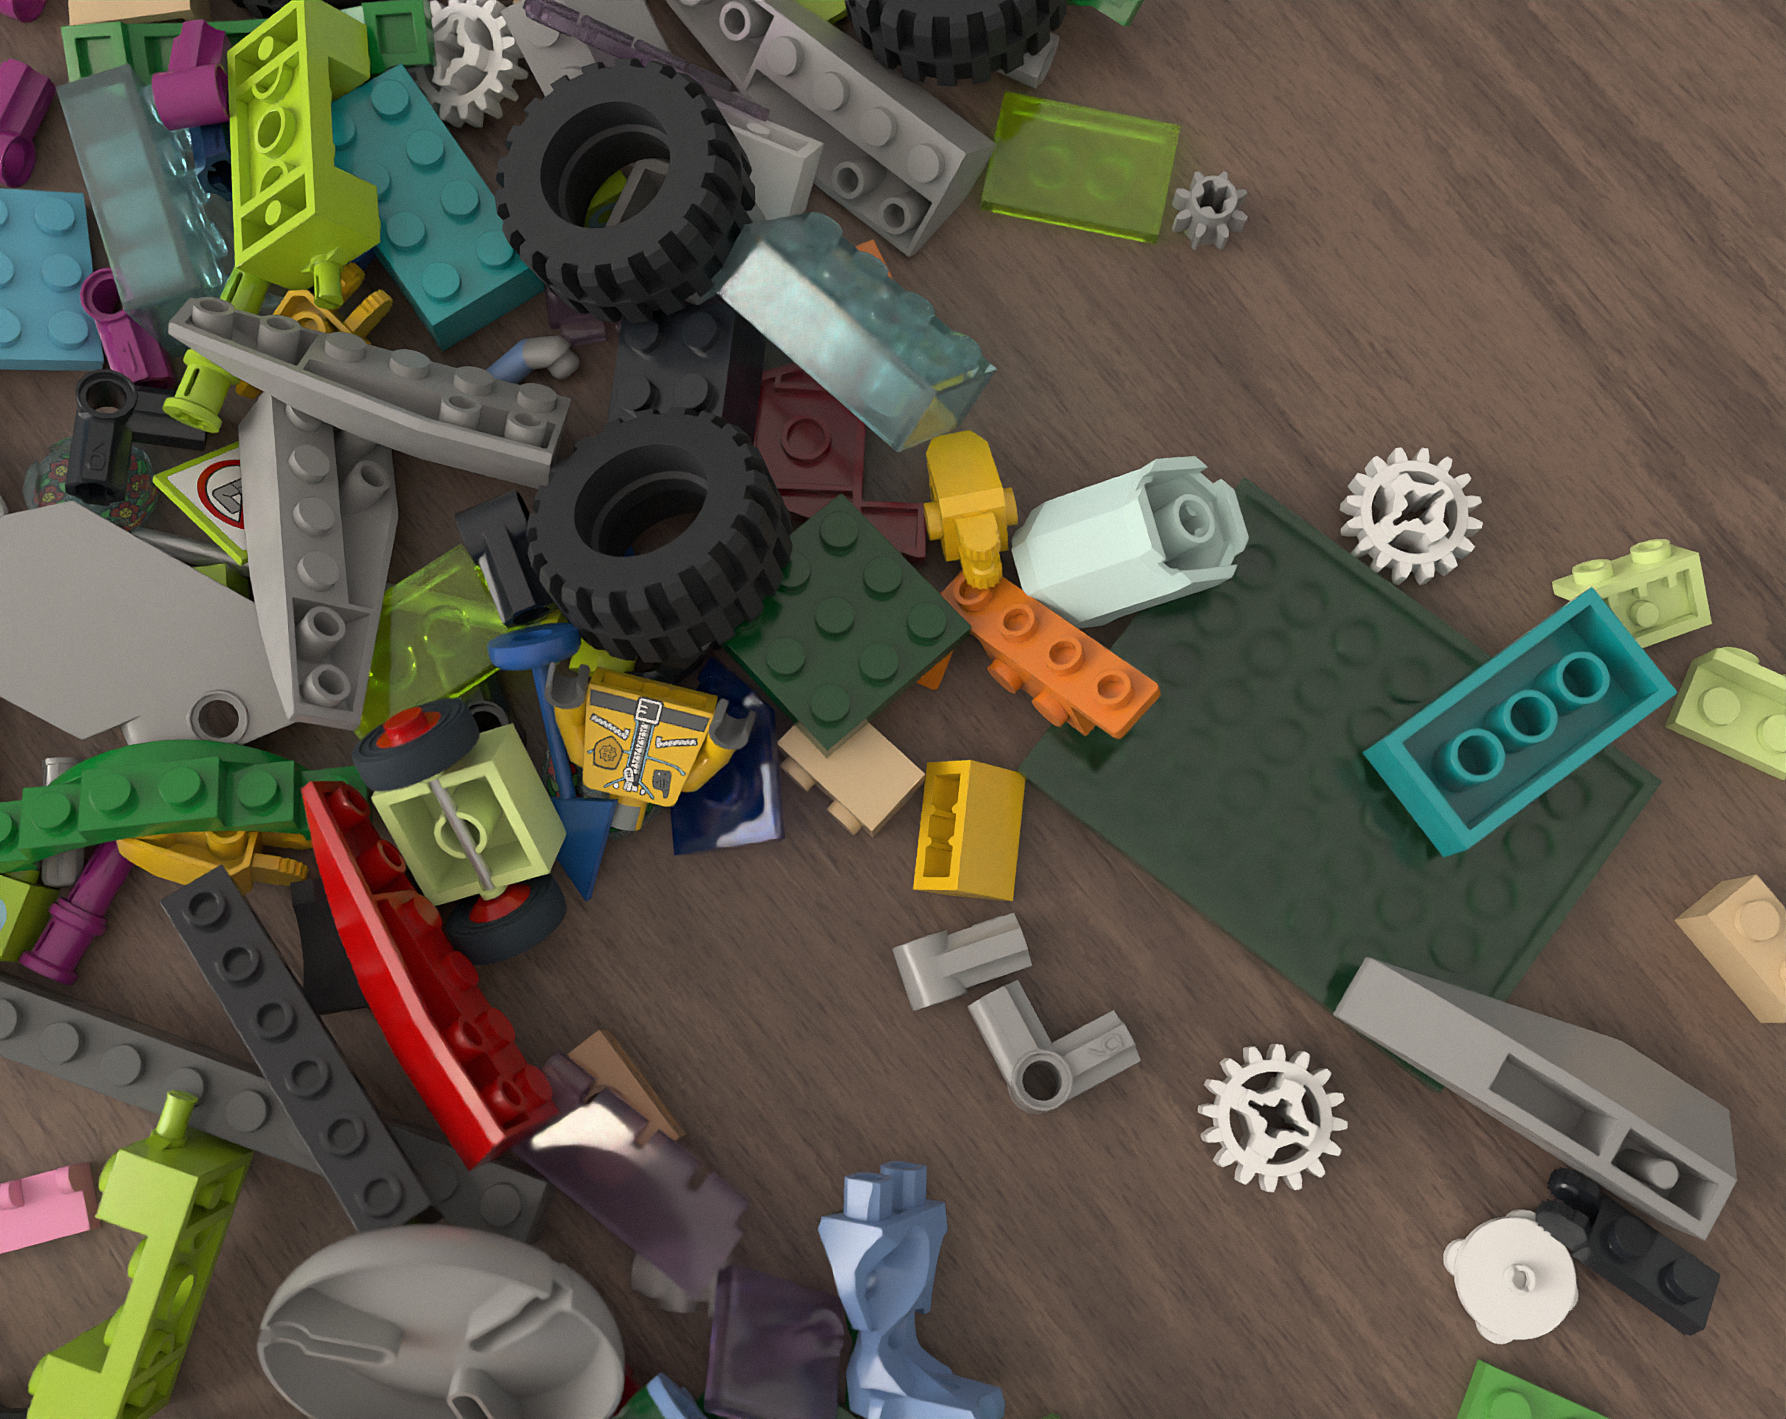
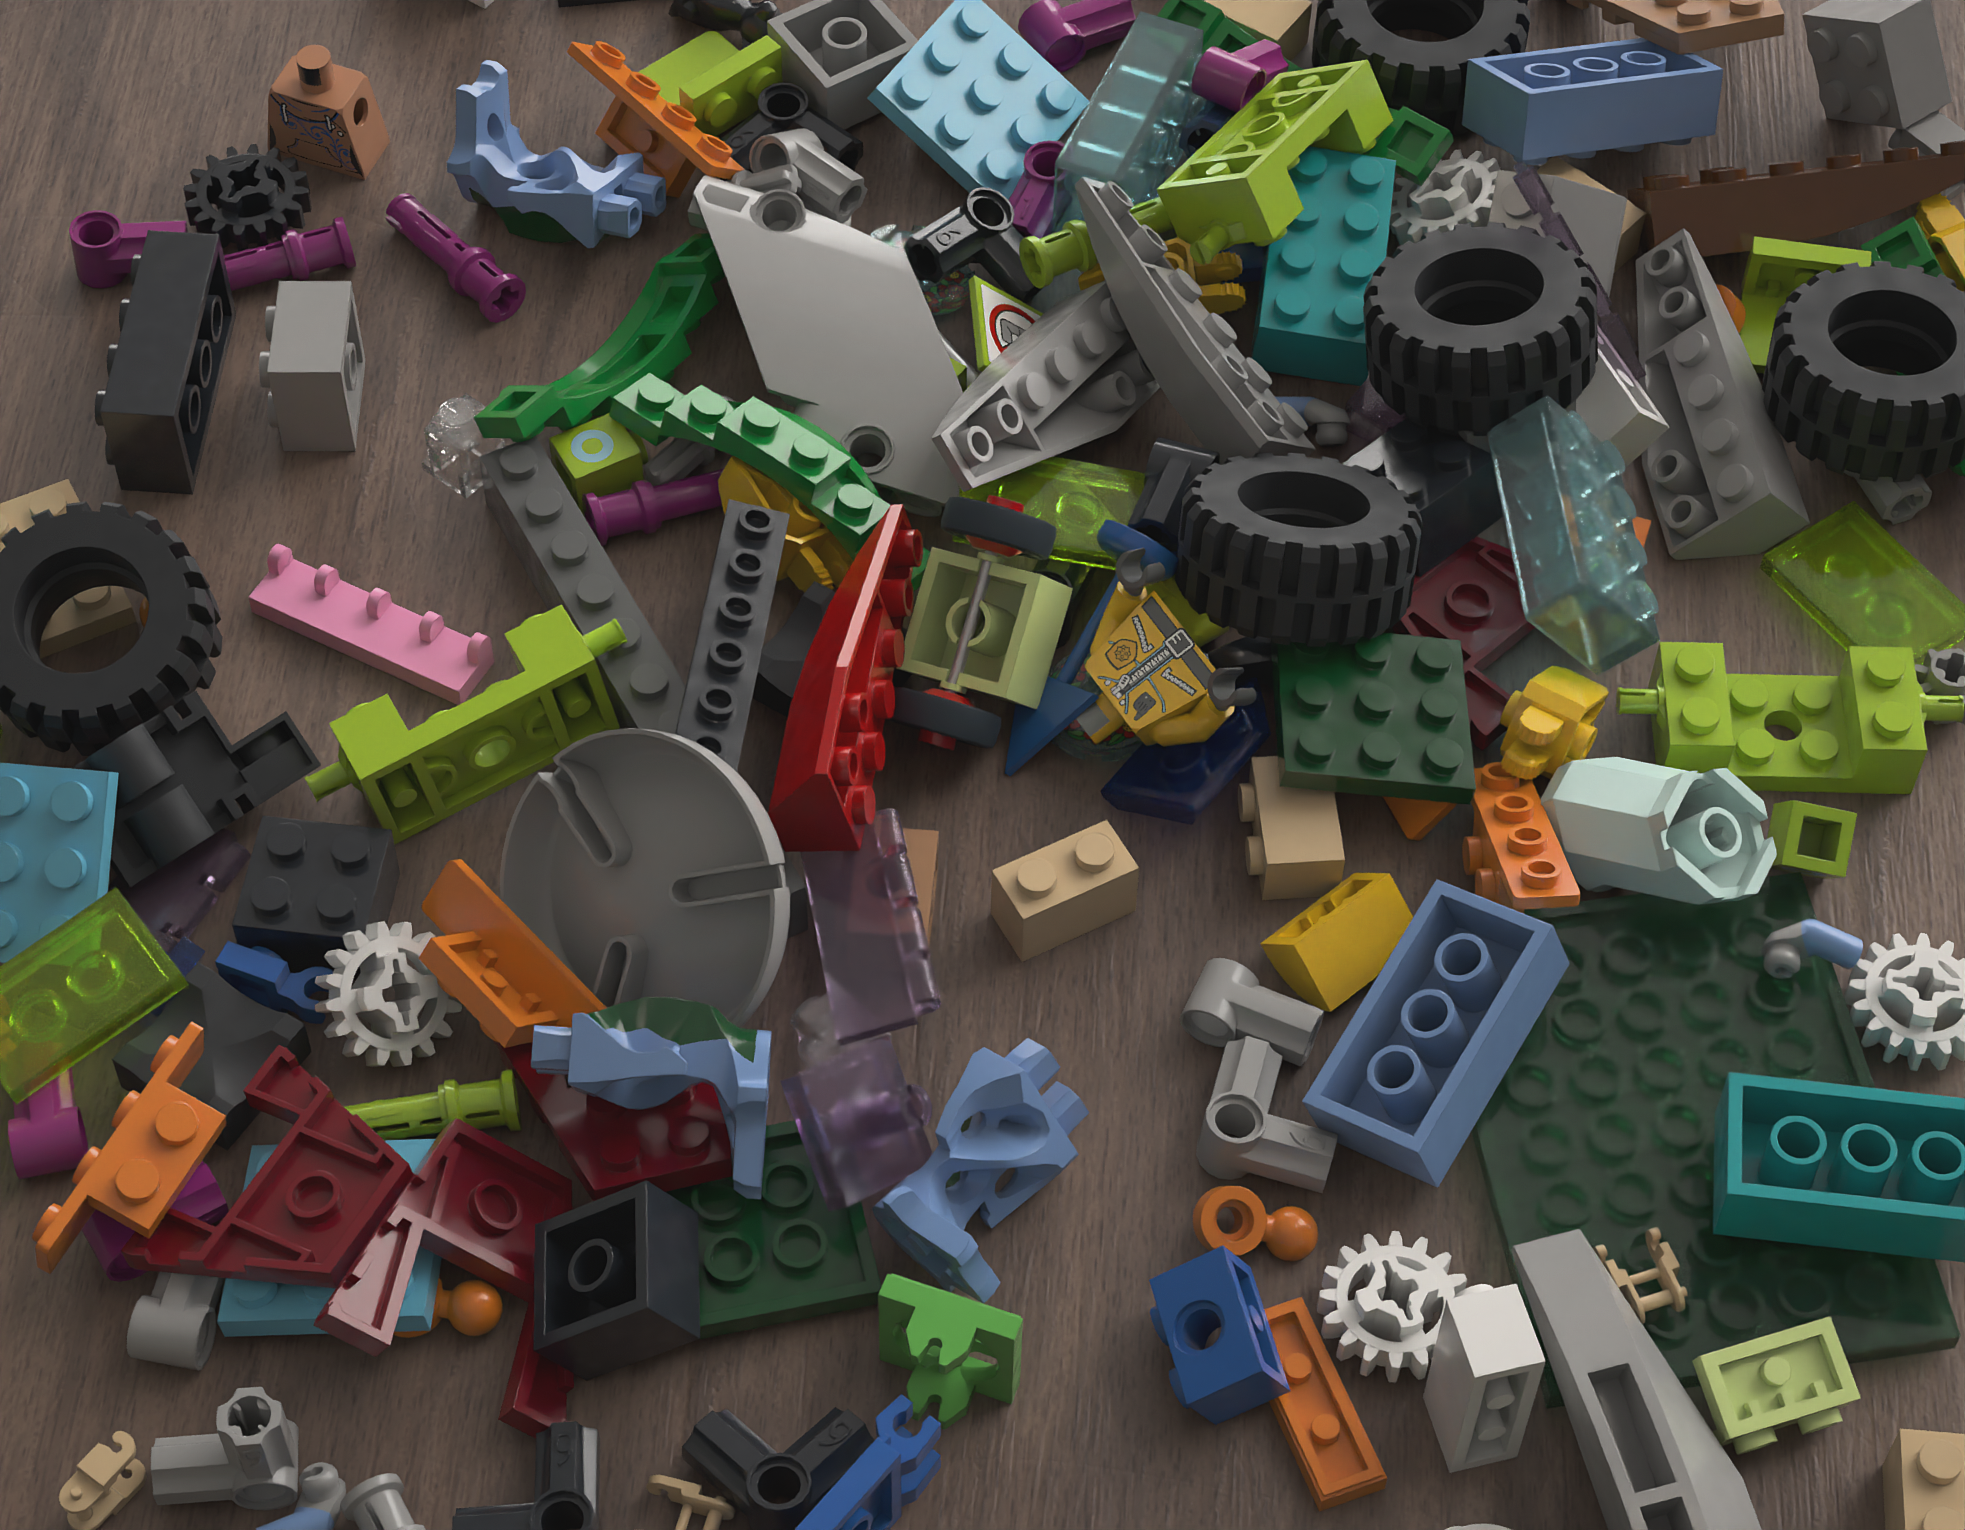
camera: 40 degrees right, 25 degrees down
(733, 982) = (1064, 890): none -> tan brick
(1129, 879) = (1437, 1032): none -> medium blue brick
(1140, 1117) = (1287, 1232): none -> orange plate
(1166, 1234) = (1243, 1362): none -> blue brick
(1168, 302) = (1849, 728): none -> lime brick
(1236, 444) = (1811, 839): none -> lime brick
(1274, 1241) = (1319, 1414): none -> orange tile
(1309, 540) = (1806, 939): none -> arm
(1418, 1156) = (1483, 1376): none -> white brick
(1438, 921) = (1665, 1272): none -> tan piece
(1586, 945) = (1777, 1383): none -> yellowish green bracket

